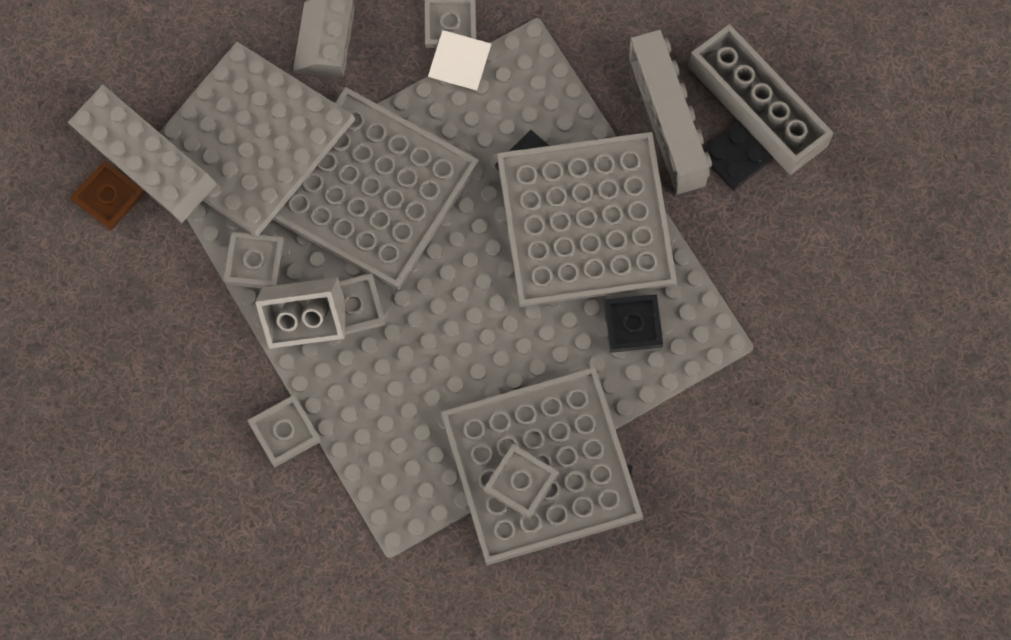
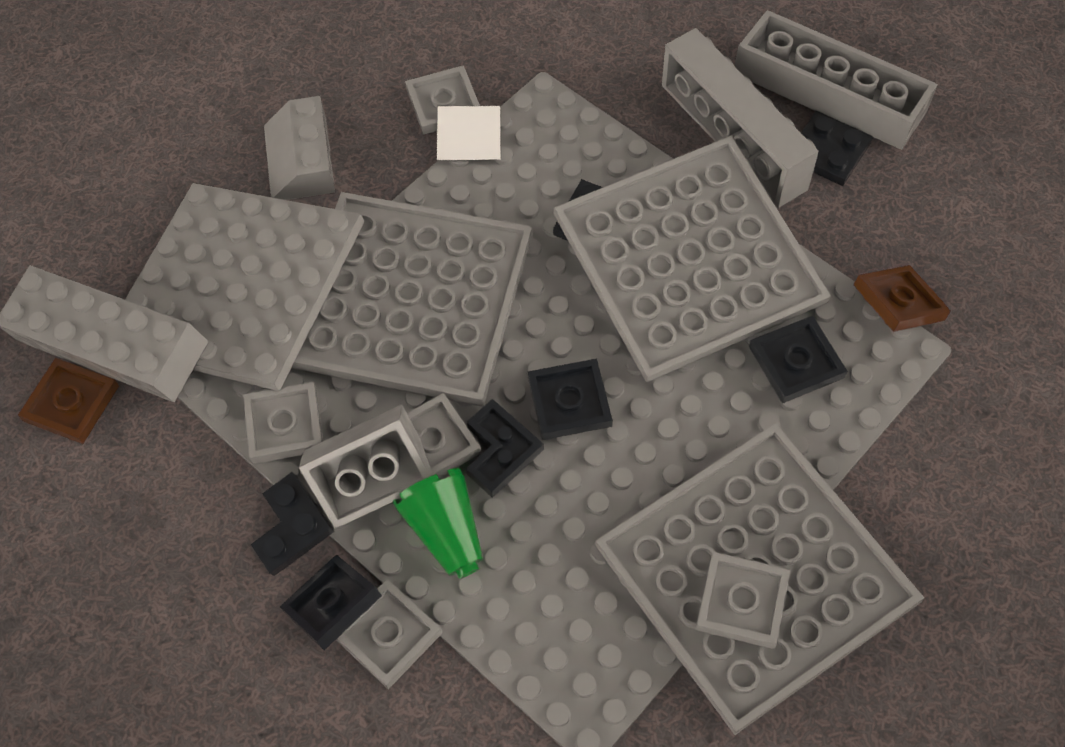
camera: 15 degrees left, 10 degrees down
(247, 336) = (300, 525): none -> black plate
(252, 398) = (330, 601): none -> black plate
(343, 368) = (443, 521): none -> green cone
(405, 328) = (509, 448): none -> black plate
(459, 304) = (569, 399): none -> black plate
(730, 299) = (901, 298): none -> reddish brown plate

